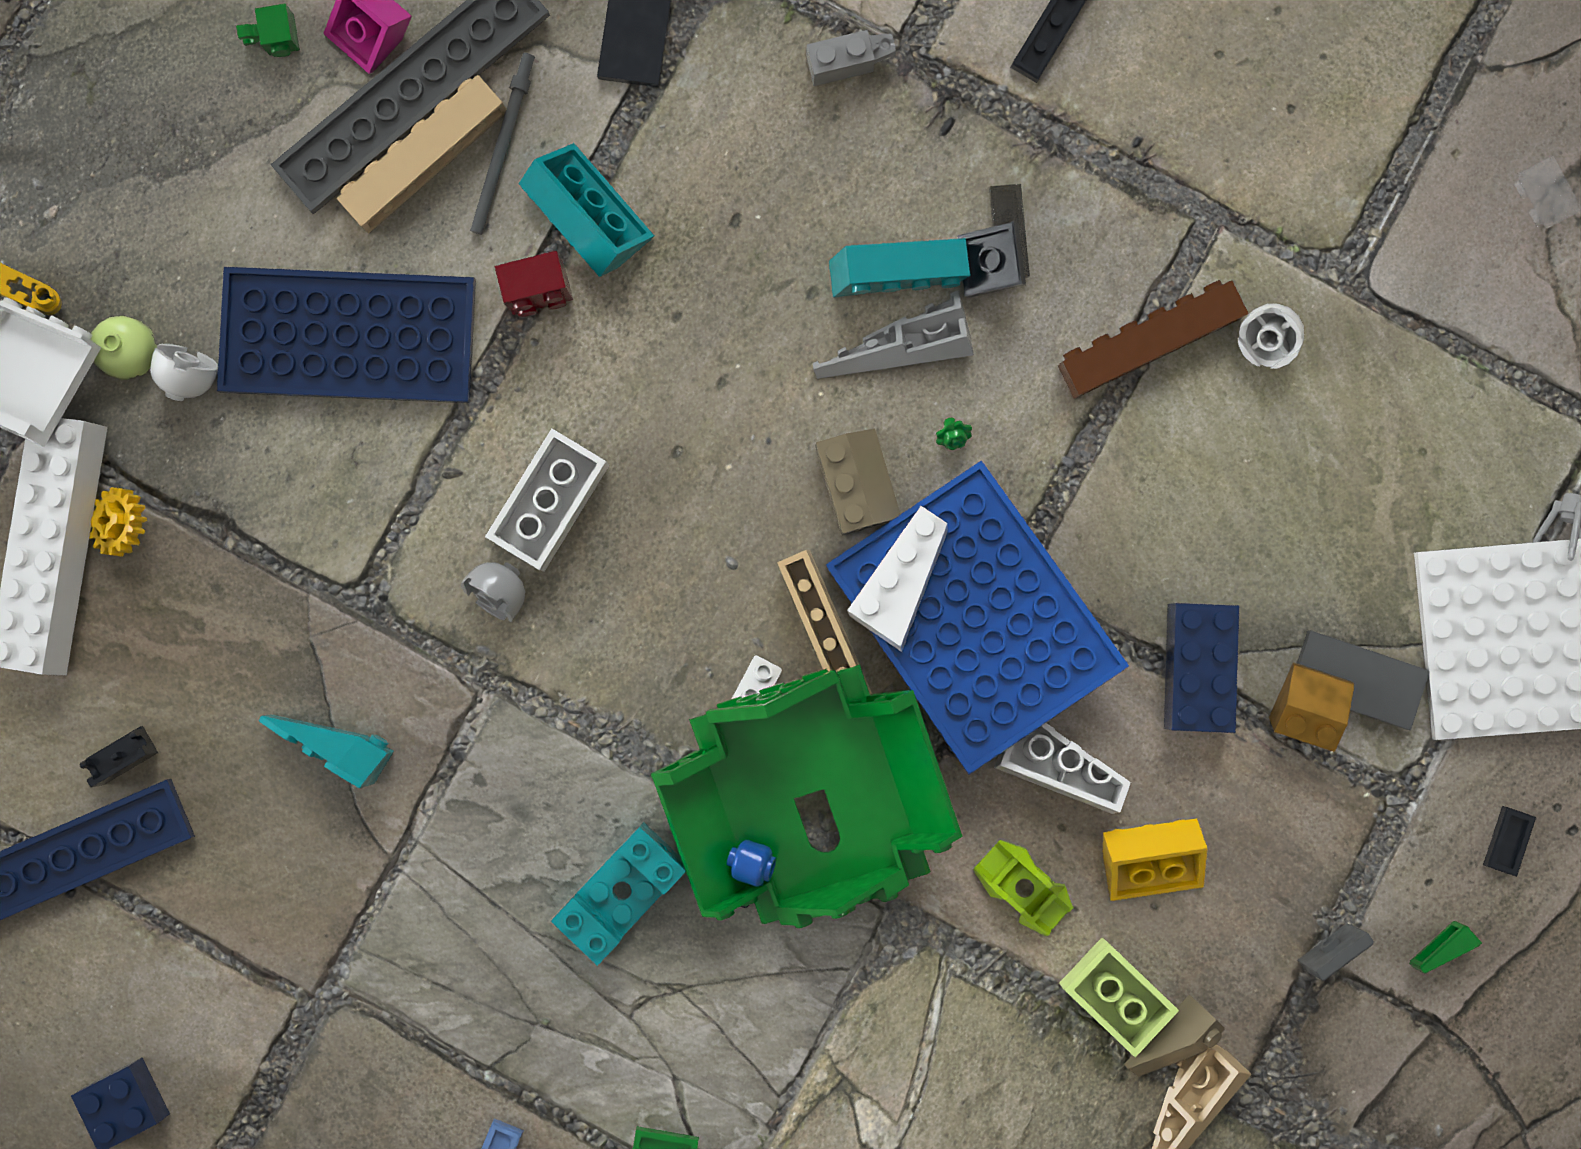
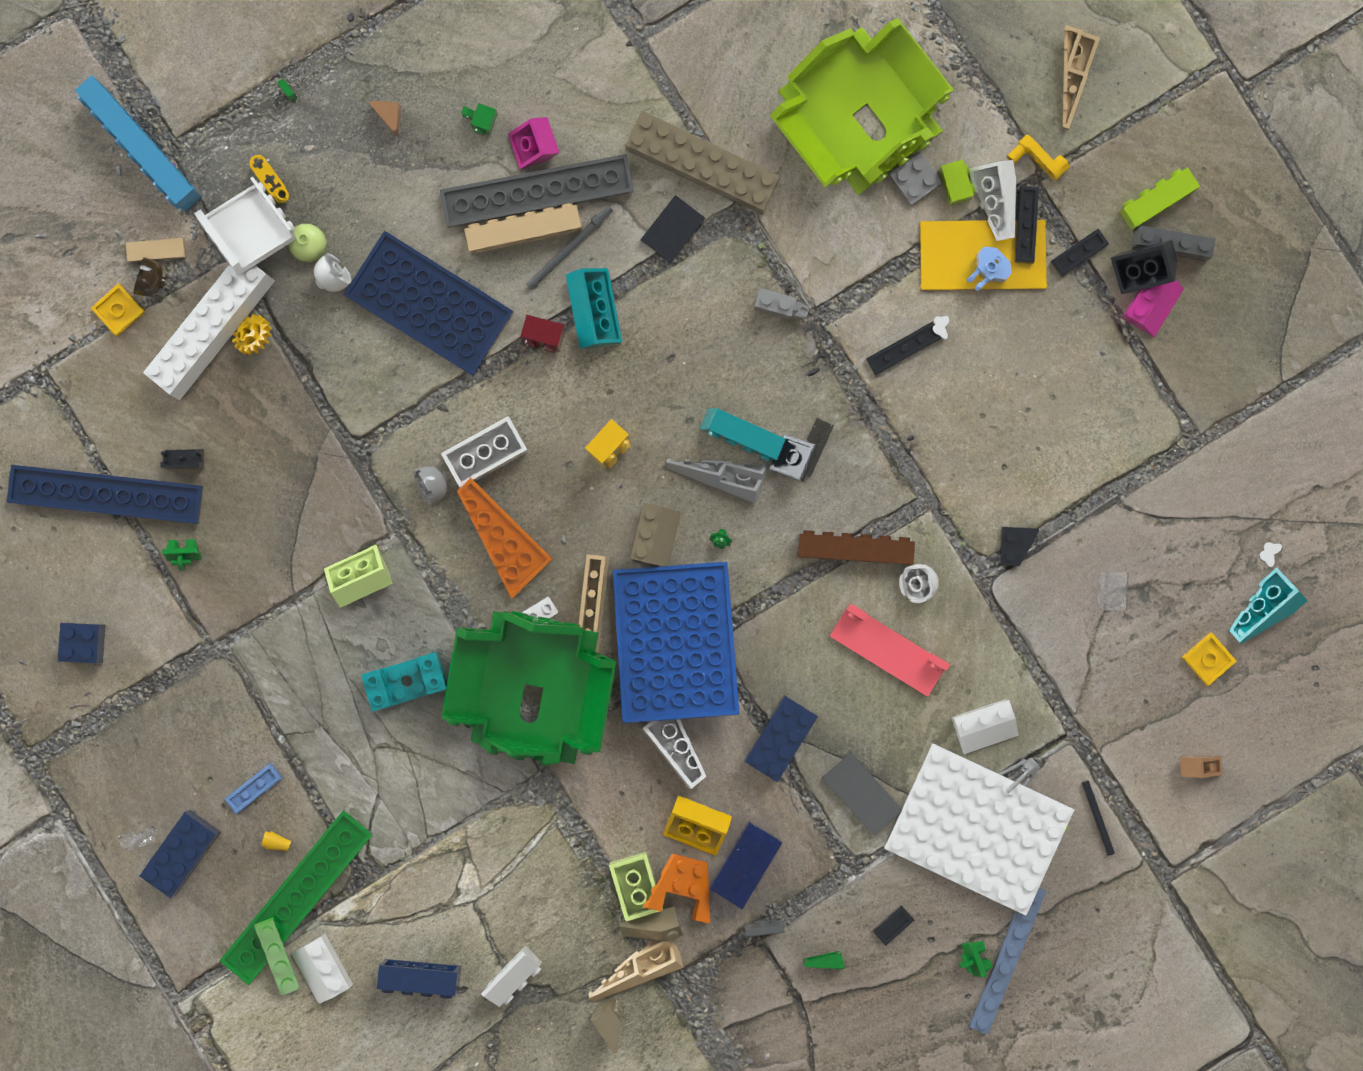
camera: 35 degrees right, 0 degrees up
(135, 97) = (389, 112): none -> medium nougat slope
(196, 896) = (182, 556): none -> green hips
(347, 753) = (304, 526): teal wedge -> none
(466, 781) = (357, 576): none -> yellowish green slope
(659, 614) = (508, 545): none -> orange wing
(719, 385) = (609, 444): none -> yellow brick
(751, 863) = (483, 704): blue head -> none
(898, 584) = (647, 600): white wedge -> none
(1004, 868) = (615, 785): lime piece -> none
(1180, 946) = (685, 878): none -> orange wing
(1255, 876) = (745, 864): none -> clear blue brick
(1280, 455) = (888, 650): none -> coral bracket
(1313, 707) = (827, 793): pearl gold slope -> none
(1371, 207) = (1015, 544): none -> black wing
(1477, 484) = (985, 726): none -> white slope

